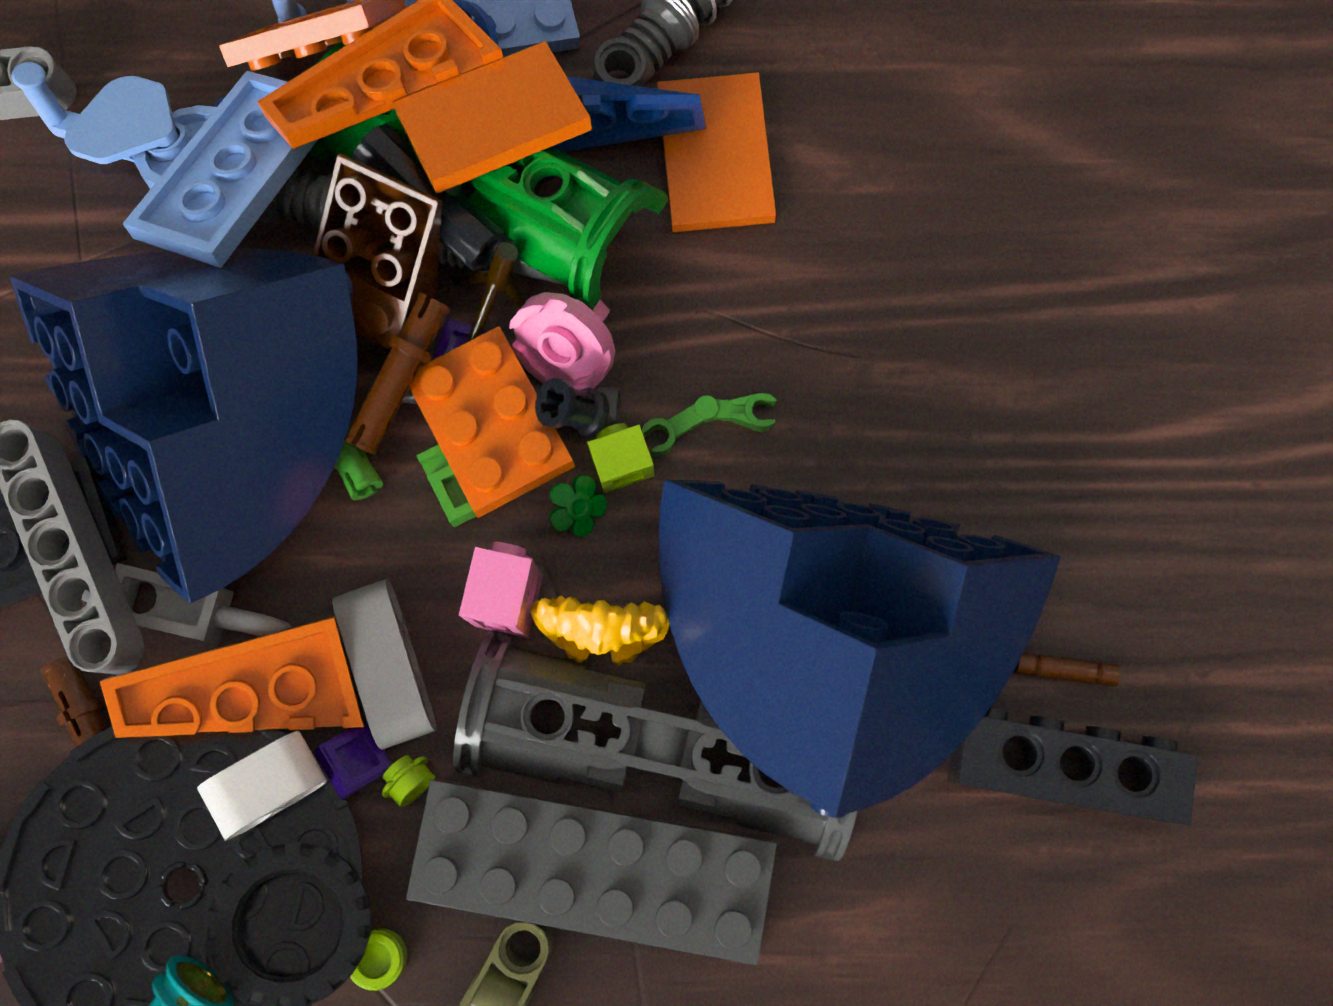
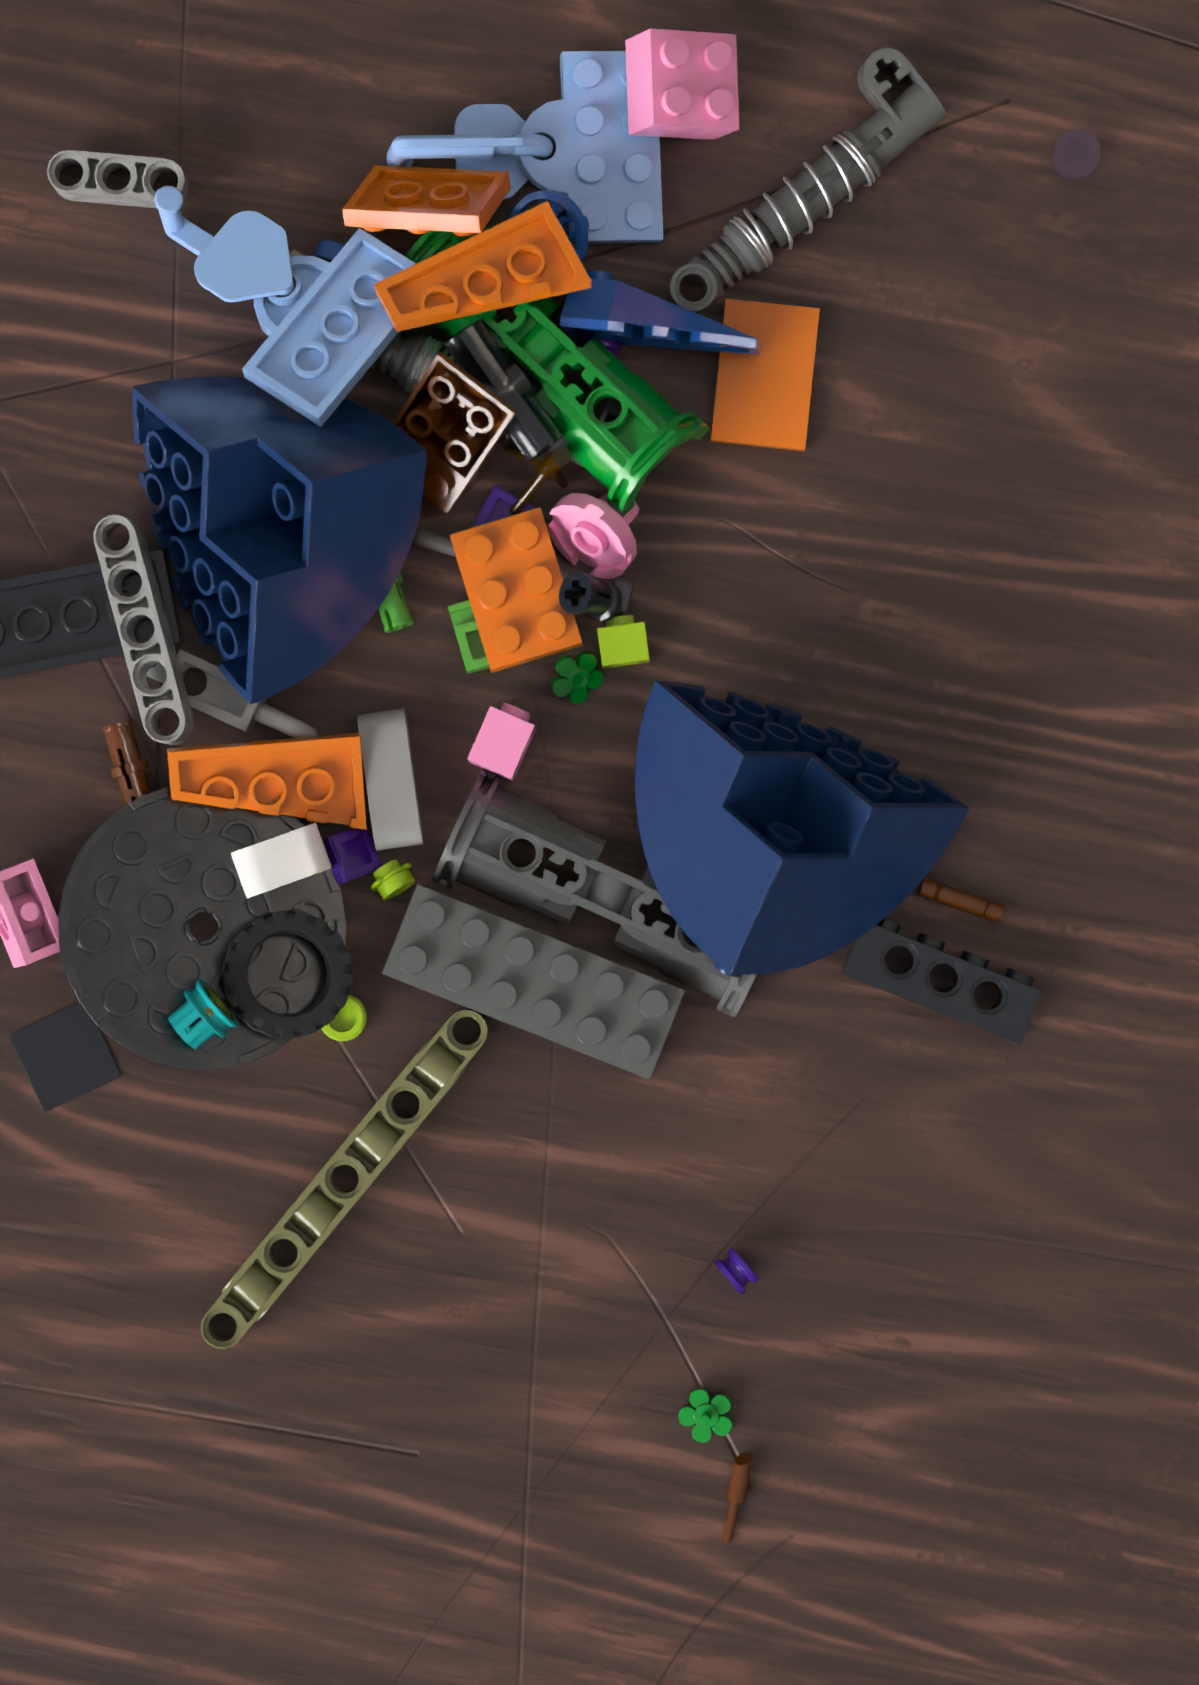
camera: 10 degrees right, 10 degrees up
(397, 373) = (459, 520): reddish brown pin -> none
(492, 116) = (572, 339): orange tile -> none
(600, 627) = (575, 789): yellow piece -> none
(709, 409) = (705, 614): bright green piece -> none

